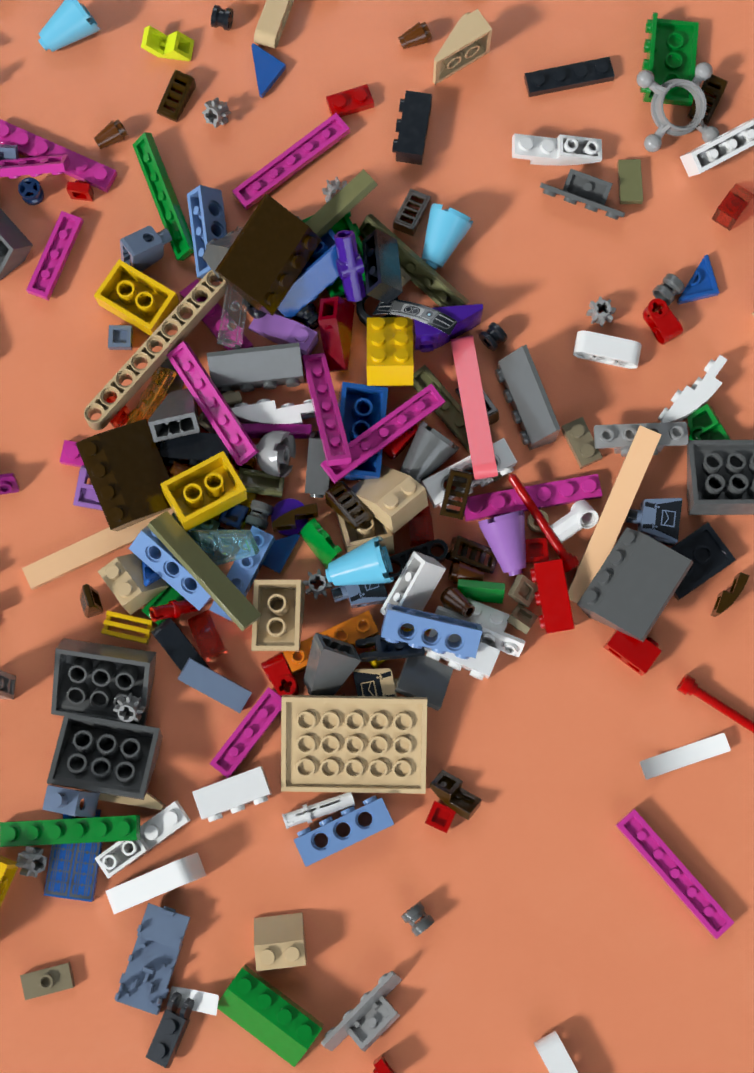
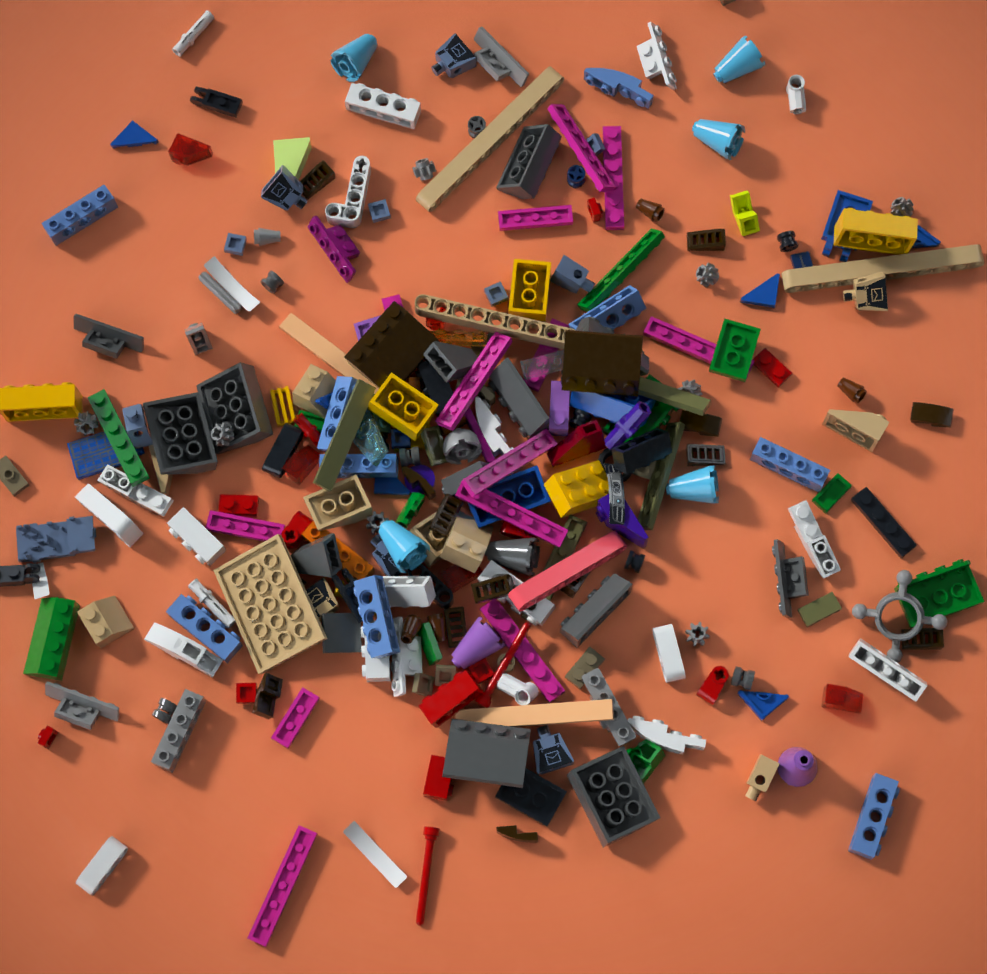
camera: 65 degrees right, 5 degrees down
(90, 601) = (289, 371): dark brown slope -> none
(214, 685) = (267, 486): sand blue tile -> none
(217, 728) = (239, 504): none -> red plate
(250, 16) = (801, 260): none -> dark blue tile
(316, 124) = (734, 350): none -> green plate
(357, 866) = (184, 649): none -> white slope
(376, 199) = (705, 425): none -> dark brown slope
(412, 127) = (774, 423): black brick -> none
(449, 913) = (178, 730): none -> light grey brick
(465, 133) = (789, 464): none -> medium blue brick
(494, 775) = (295, 718): none -> dark pink plate
(514, 110) = (831, 493): none -> green tile

